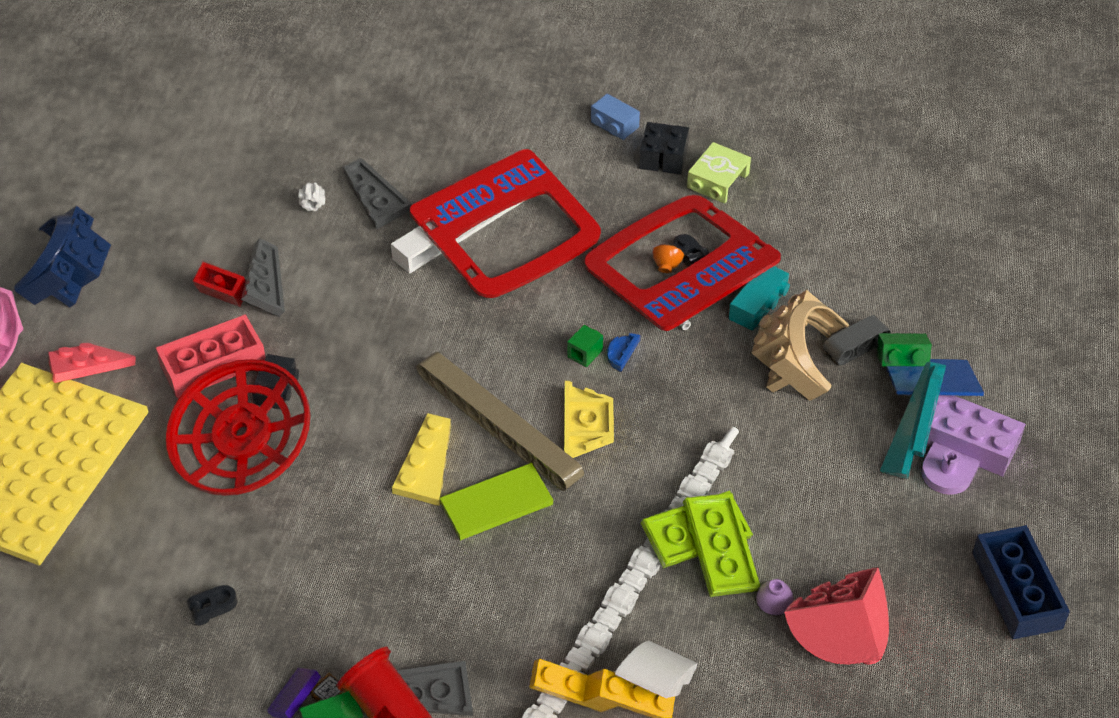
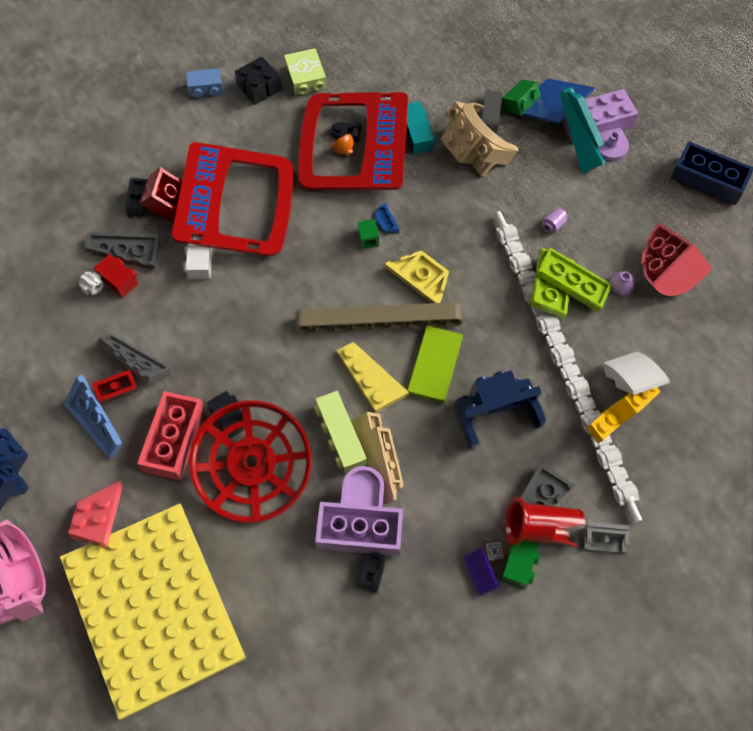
camera: 50 degrees left, 15 degrees up
(177, 292) = (90, 415): none -> medium blue wing
(253, 551) = (360, 519): none -> lavender brick
(338, 207) = (116, 275): none -> red brick
(338, 476) = (340, 431): none -> yellowish green brick
(346, 525) = (380, 452): none -> tan wedge
(432, 158) = (134, 196): none -> black hinge
(451, 167) = (162, 193): none -> red brick
(496, 559) = (495, 395): none -> dark blue piece
(782, 483) = (554, 220): none -> lavender brick

